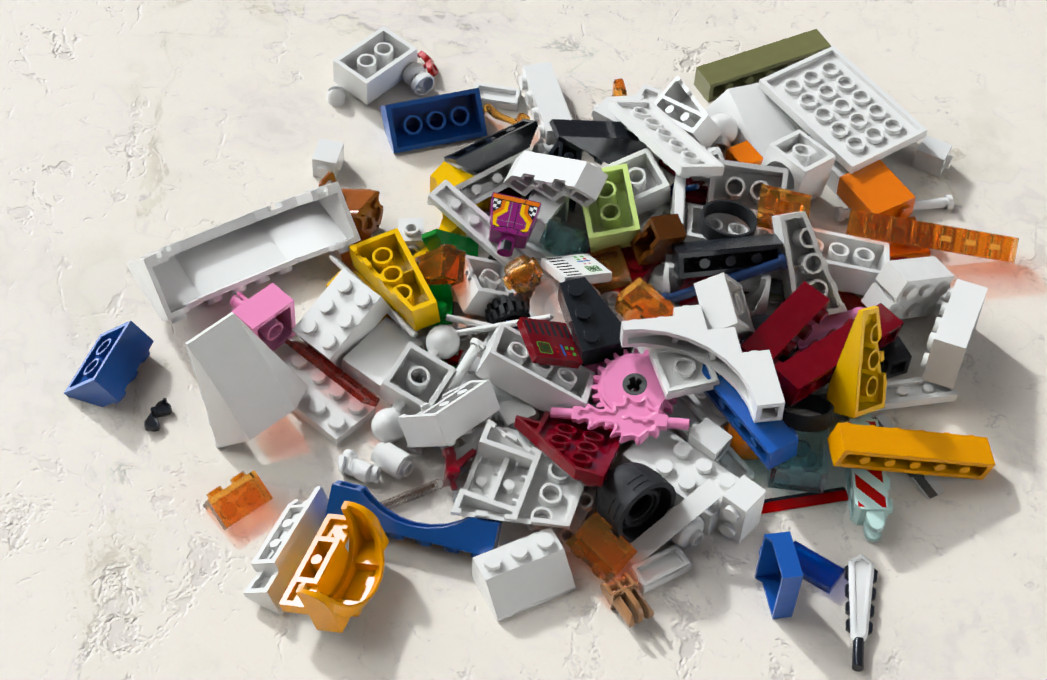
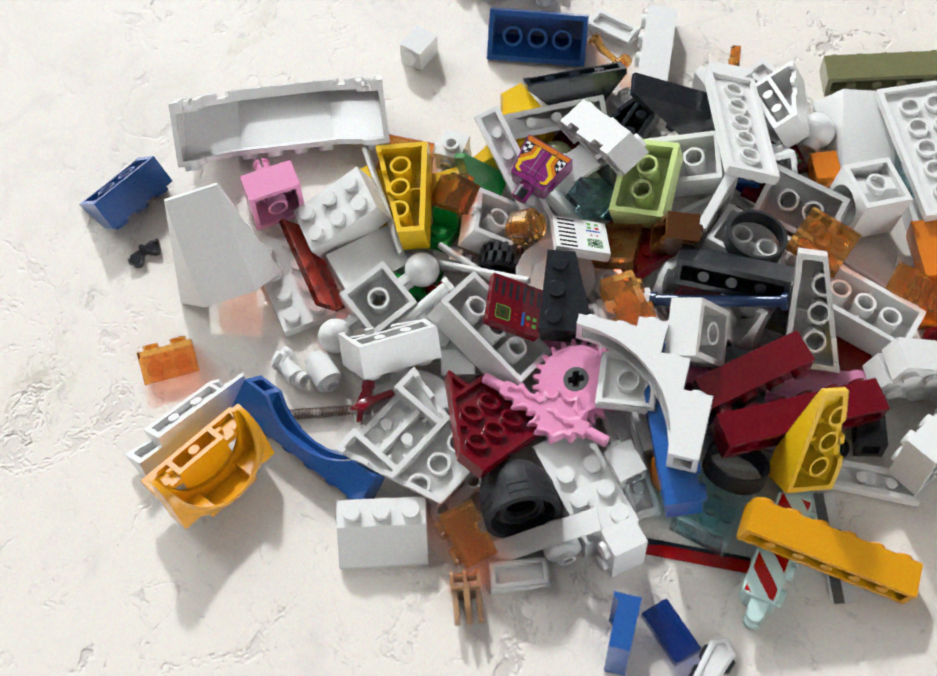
camera: 30 degrees right, 10 degrees up
(363, 206) = (409, 105): dark orange piece -> none

